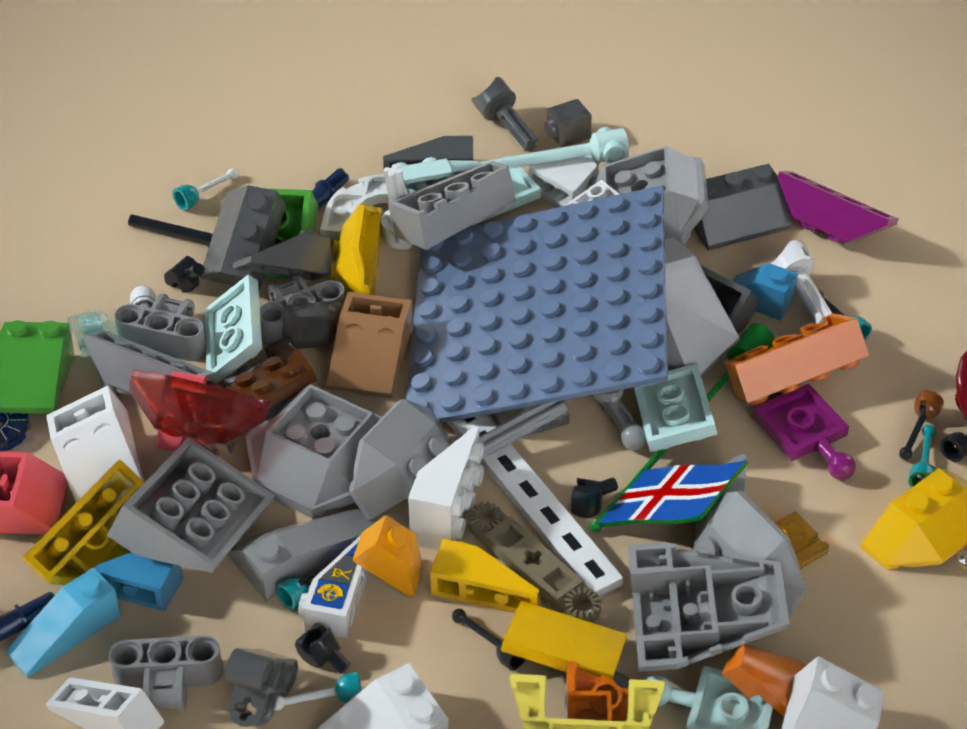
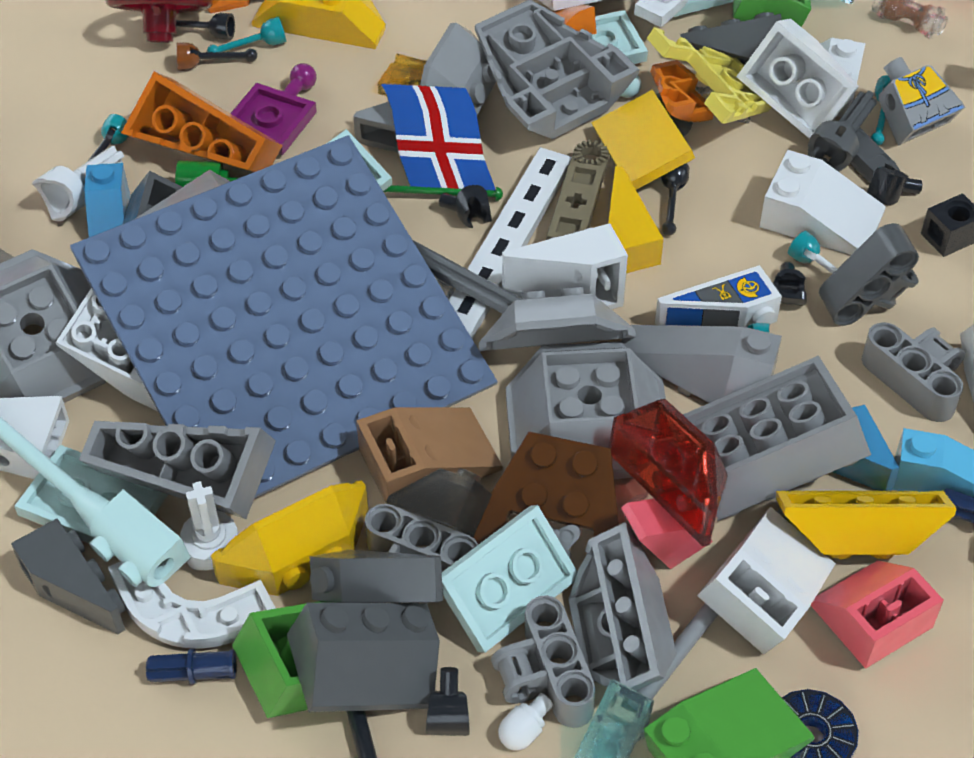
camera: 125 degrees left, 5 degrees up
(391, 555) = (675, 265): light orange slope -> none

